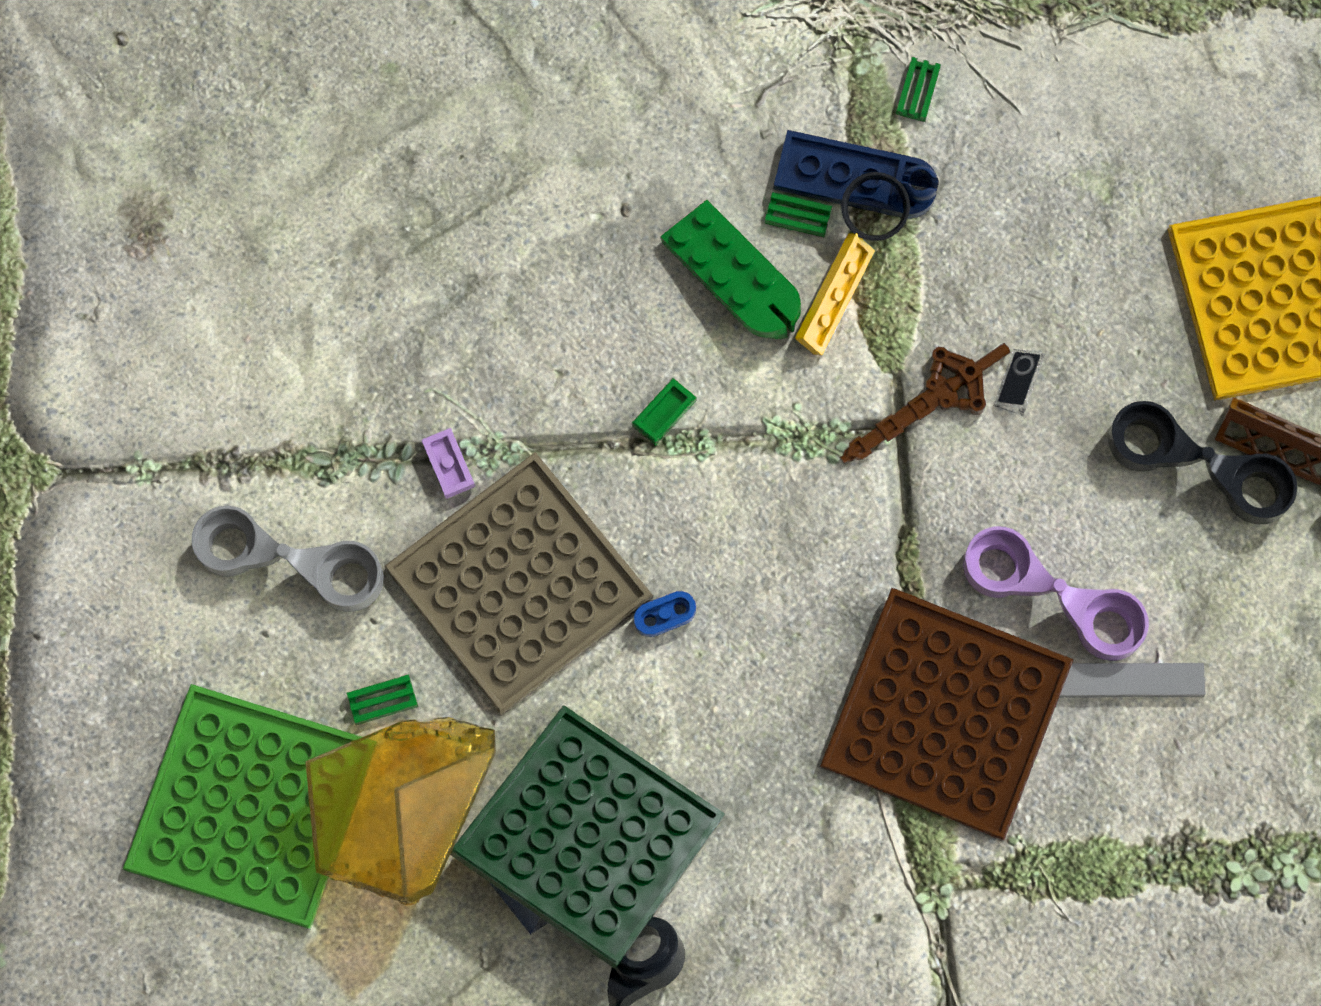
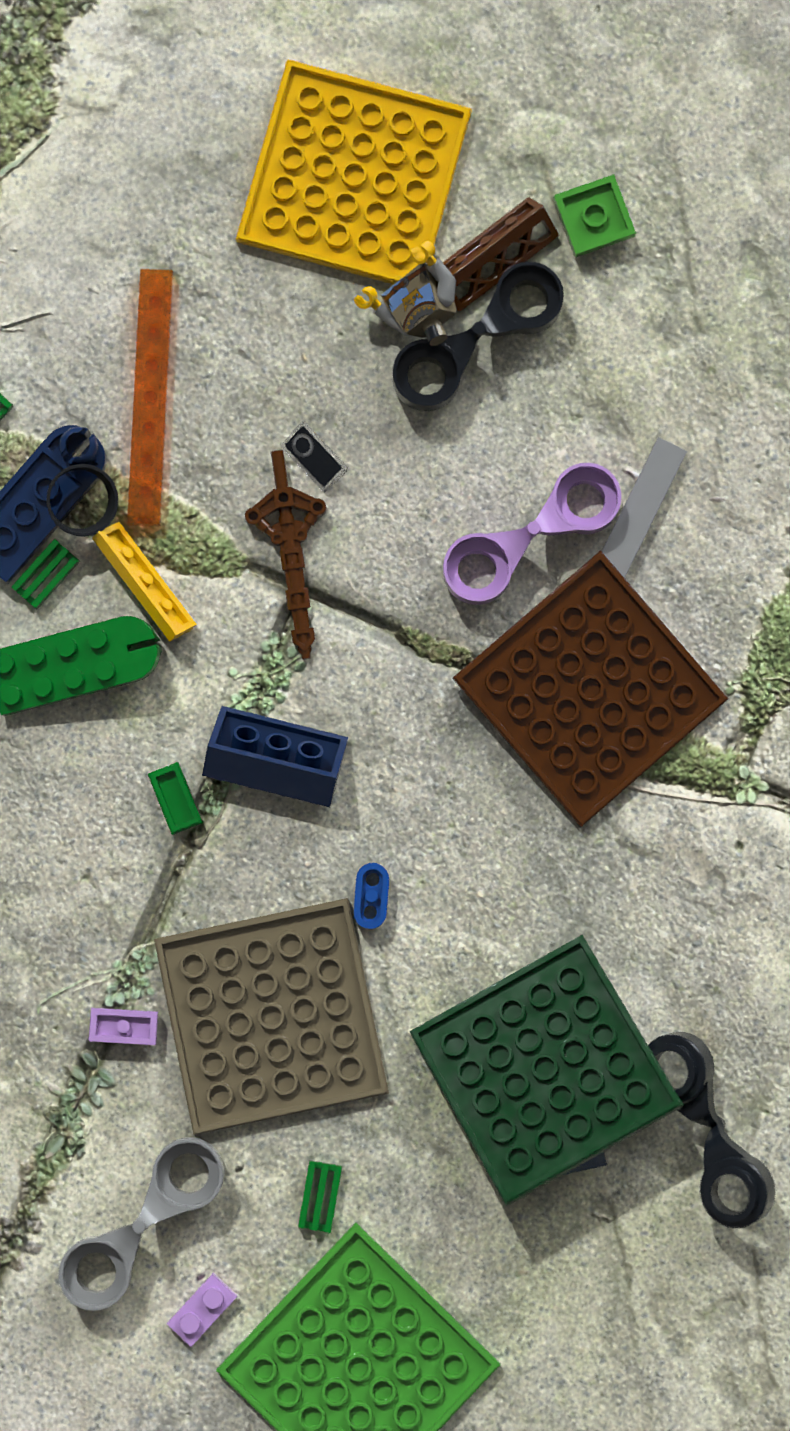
camera: 70 degrees left, 10 degrees up
(237, 648) = (202, 1309): none -> lavender plate
(396, 804) = (434, 1229): clear yellow windscreen -> none
(743, 473) = (274, 756): none -> dark blue slope
(994, 224) = (150, 397): none -> clear orange plate
(1205, 395) = (419, 300): none -> torso

